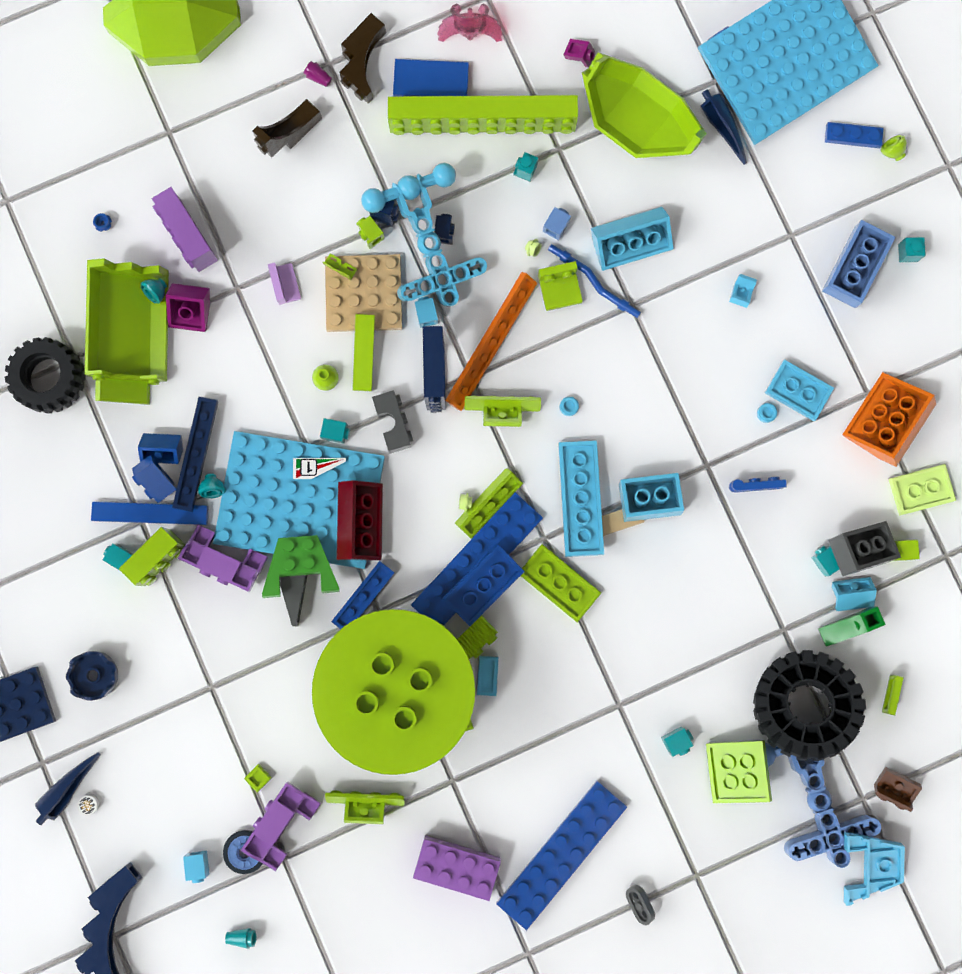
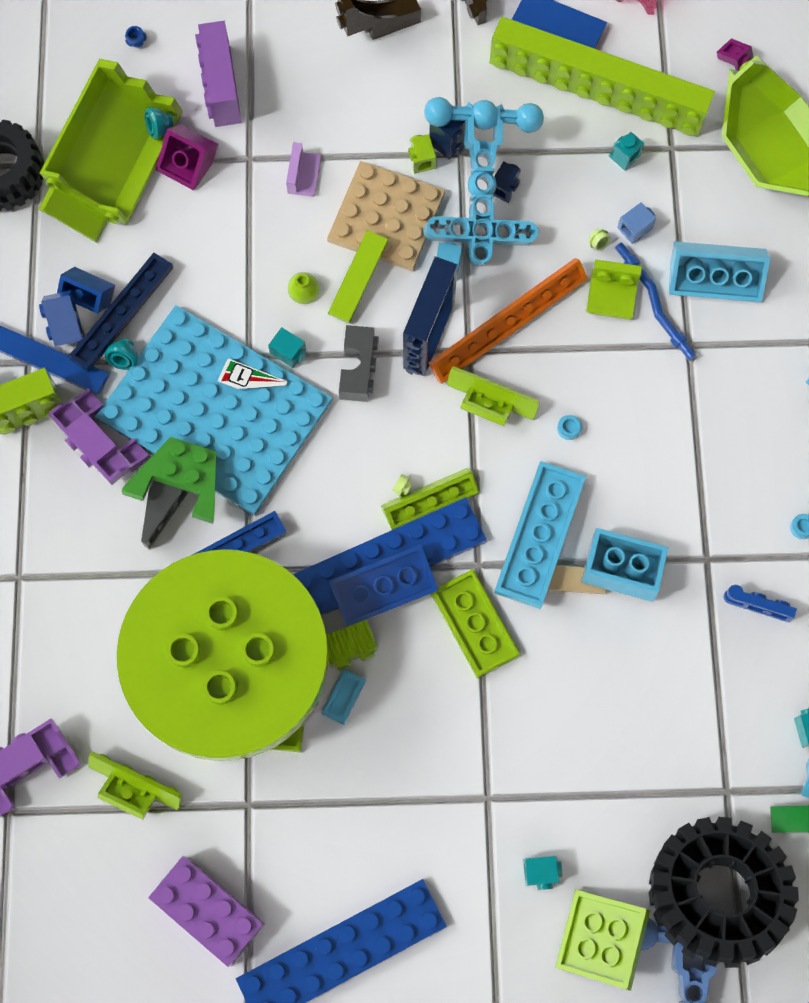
camera: 25 degrees right, 10 degrees down
(258, 778) = (22, 703): lime tile -> none
(336, 266) = (369, 175): lime piece -> none
(359, 520) = (271, 454): dark red slope -> none

